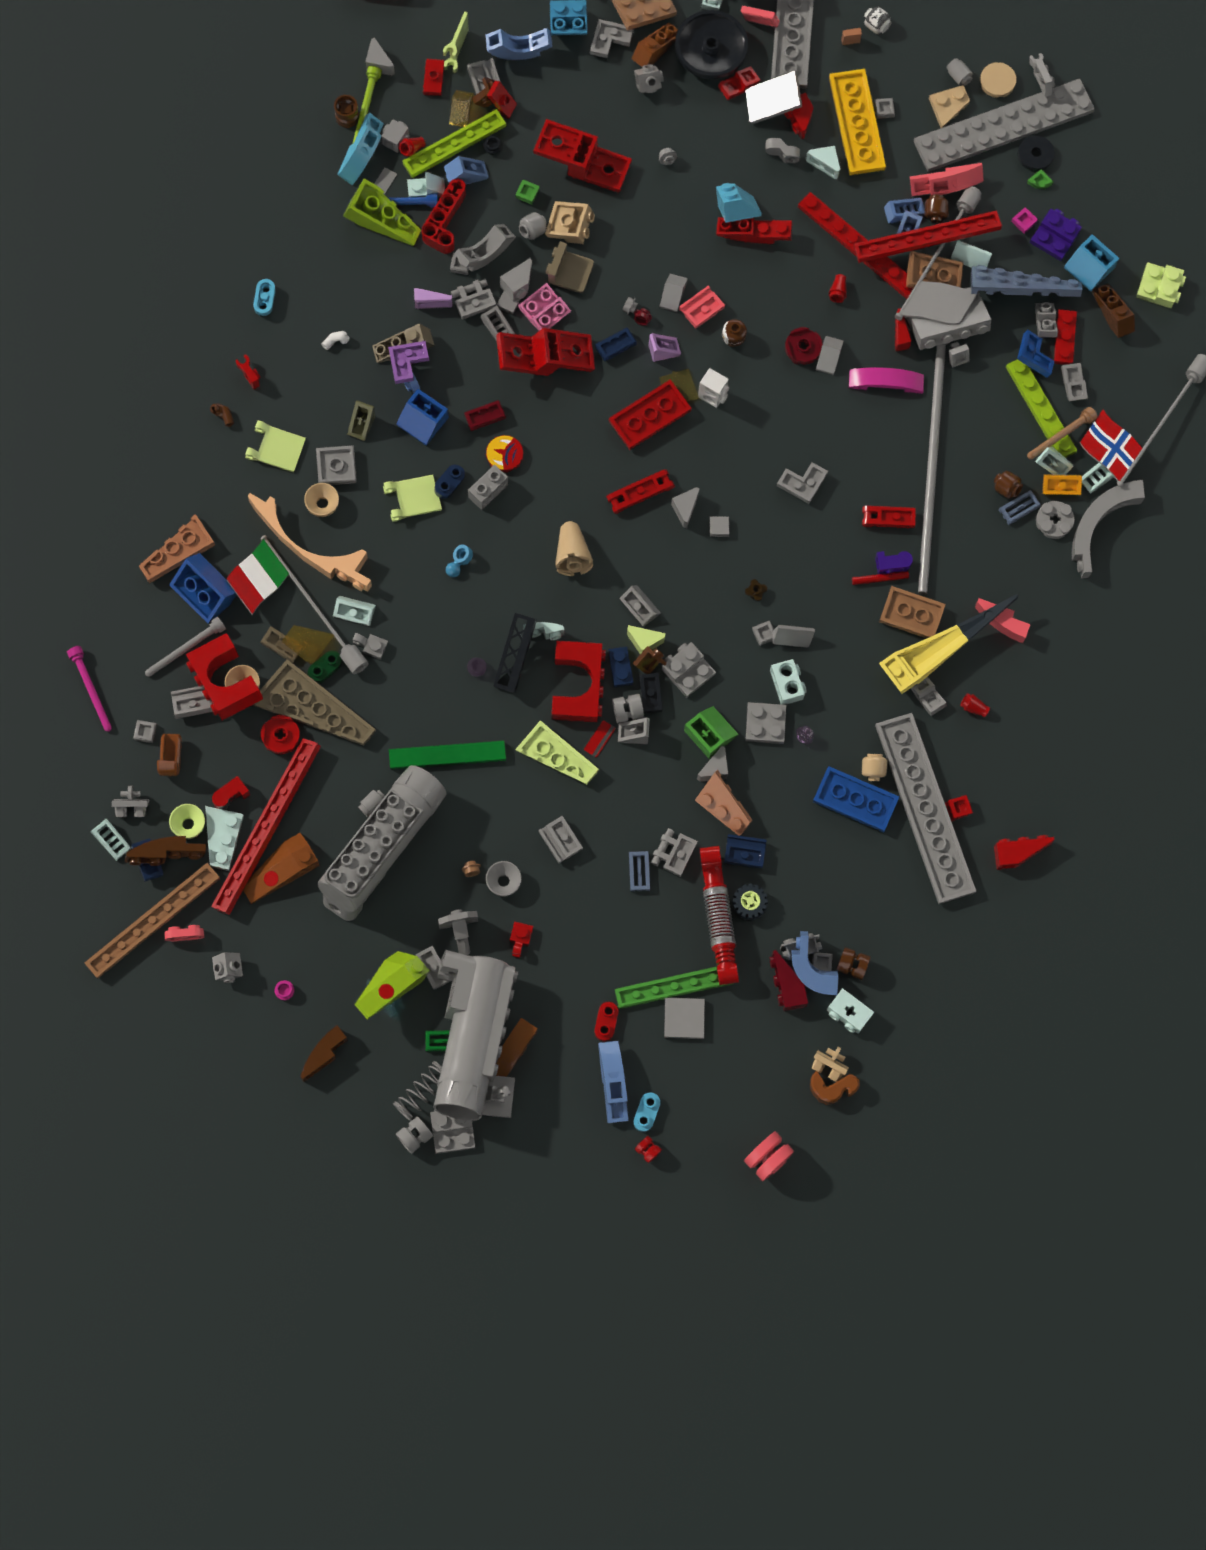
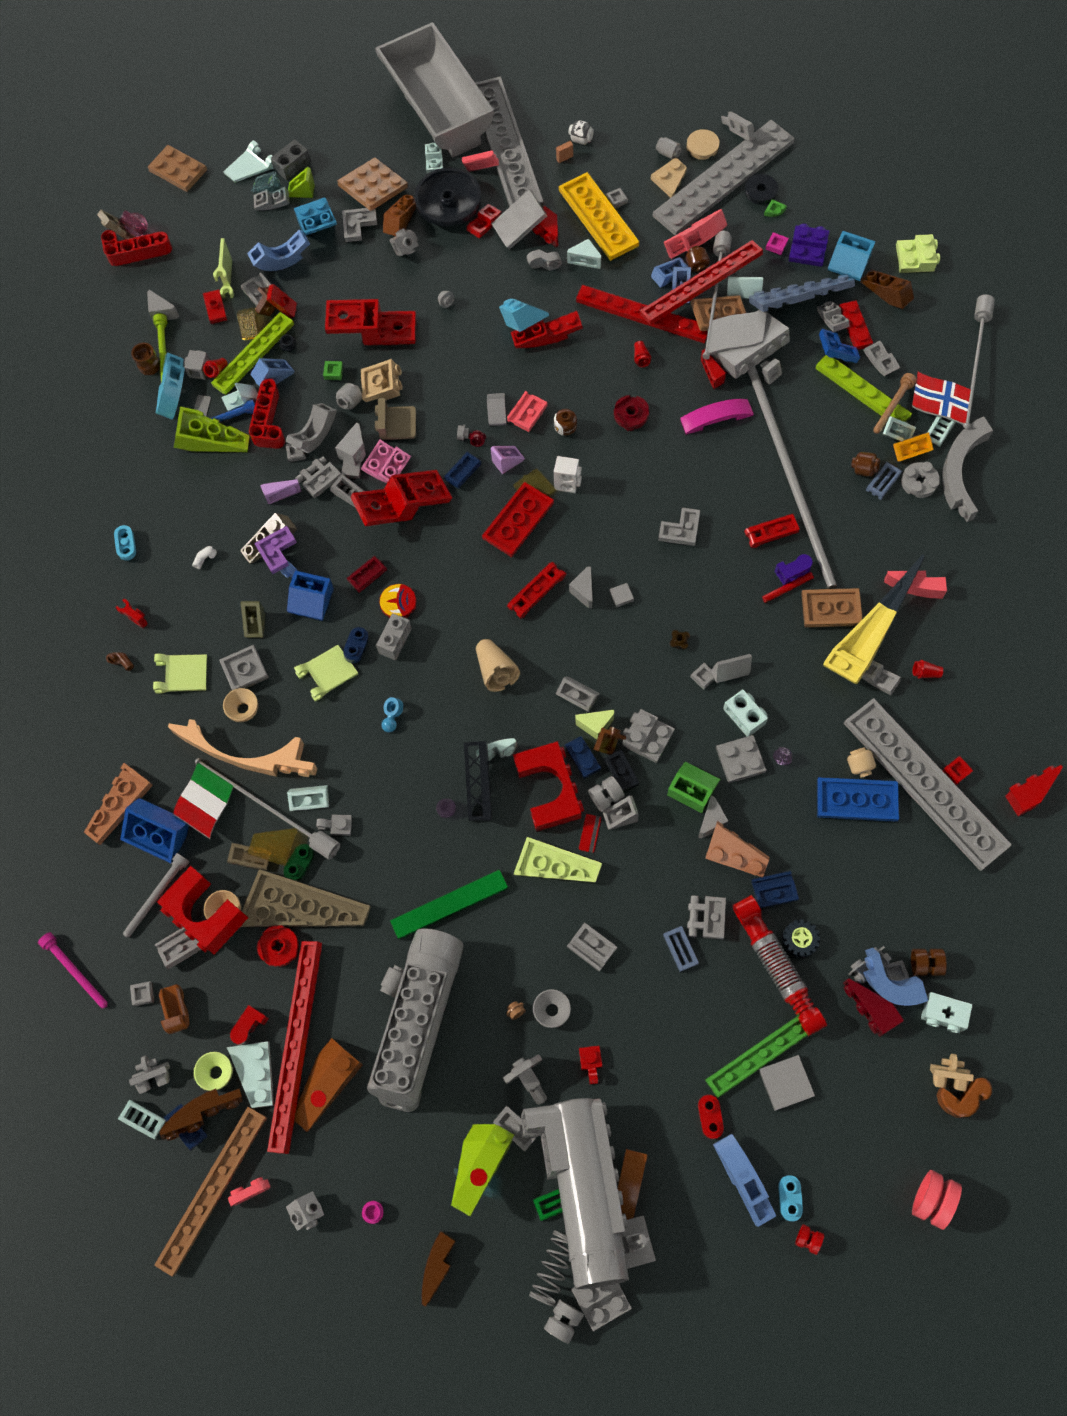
camera: 10 degrees left, 5 degrees down
(829, 355) = (658, 412): light grey slope -> none

